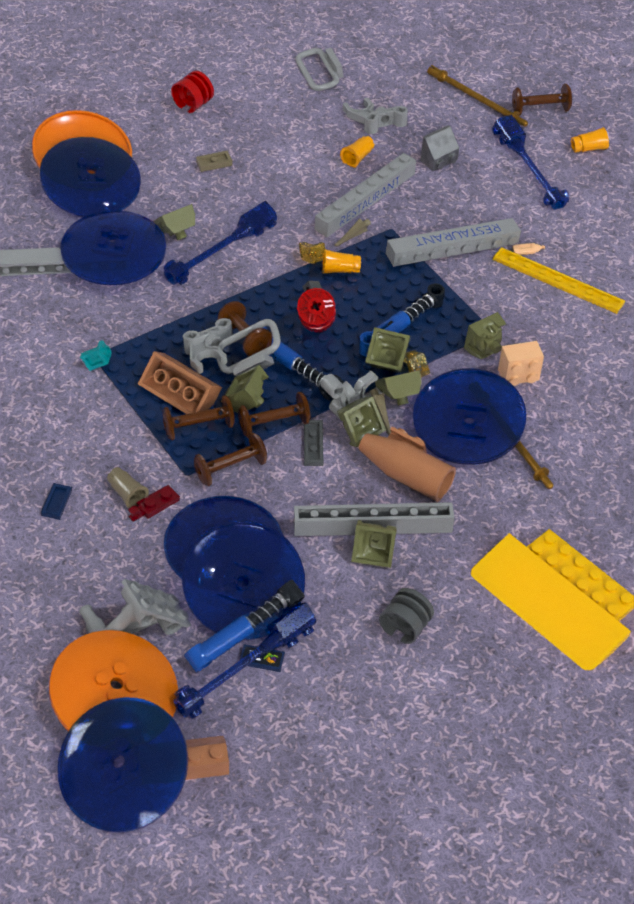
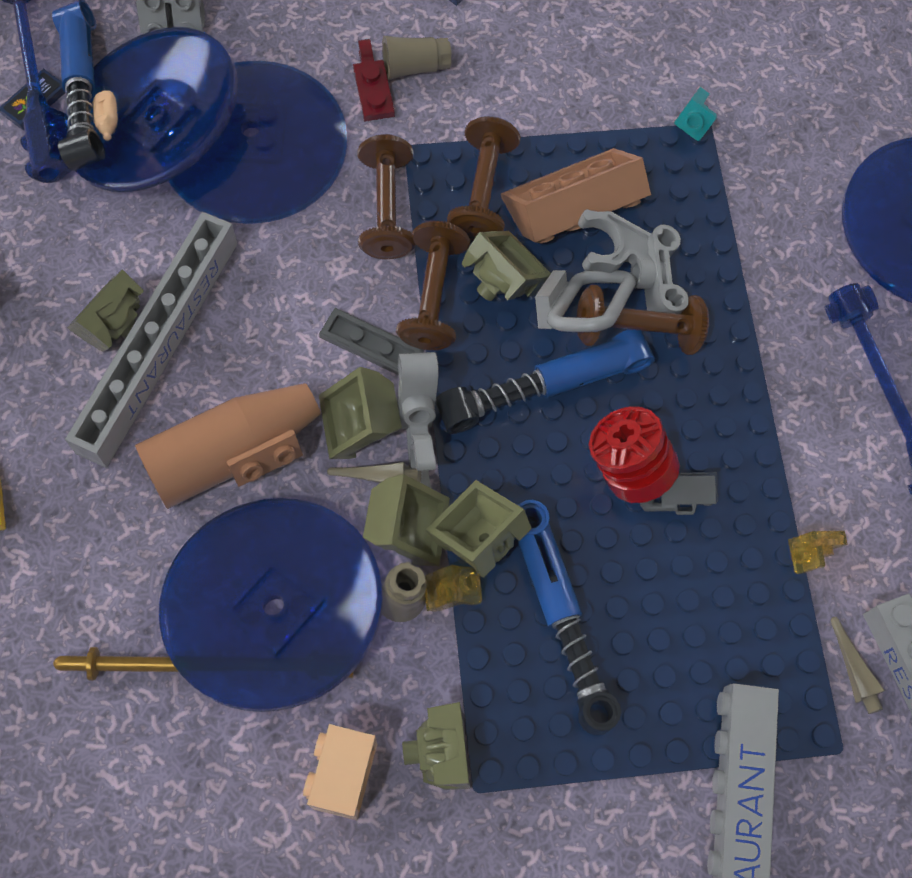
camera: 115 degrees right, 20 degrees up
(259, 598) = (105, 113): none -> light nougat piece
(340, 262) = (760, 577): light orange plant -> none
(430, 368) = (401, 604): none -> dark tan plant

